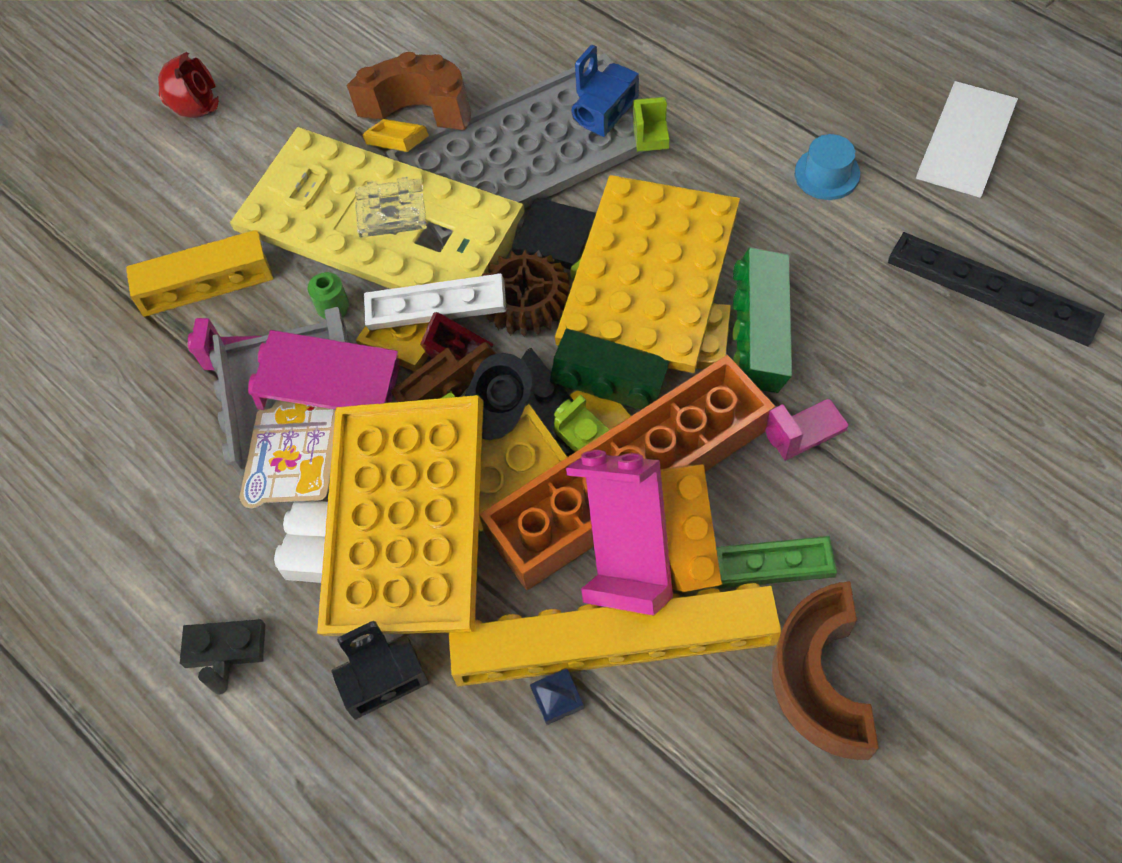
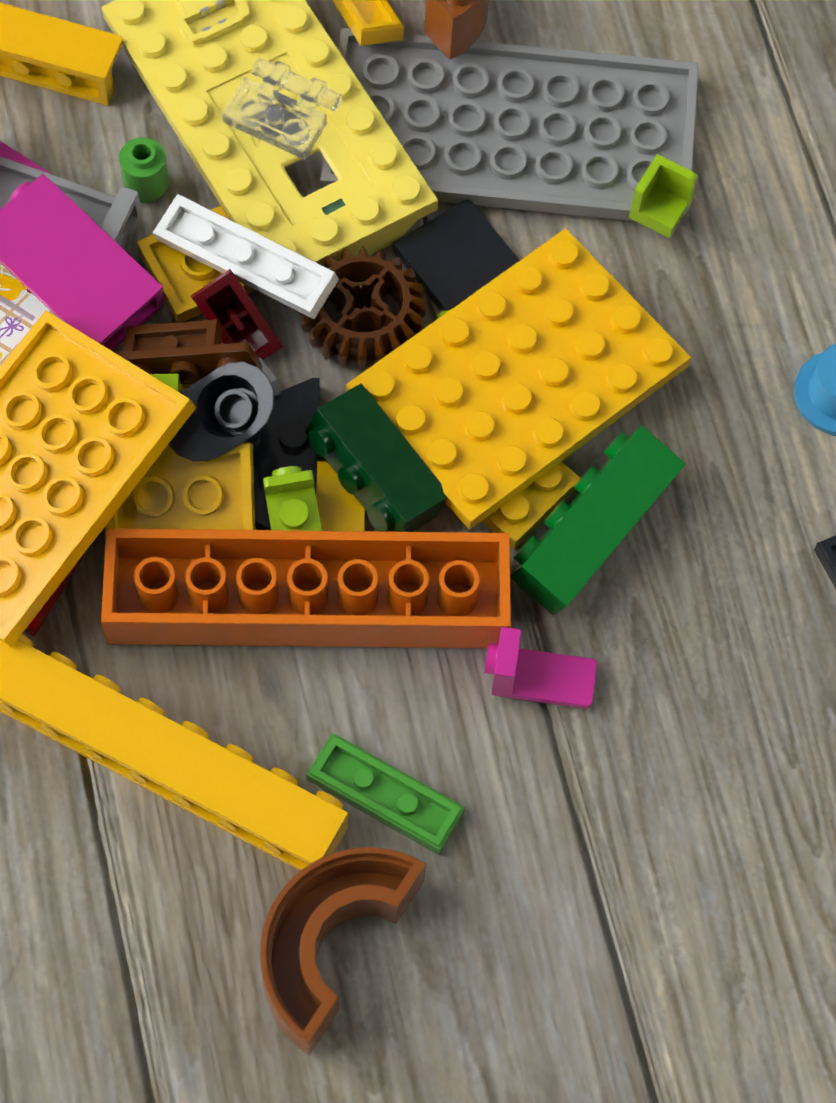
camera: 25 degrees right, 5 degrees up
(556, 696) = (51, 772): dark blue tile -> none
(603, 94) = (639, 119): blue piece -> none
(626, 531) = (234, 654): dark pink panel -> none
(689, 529) = (298, 674): light orange wedge -> none

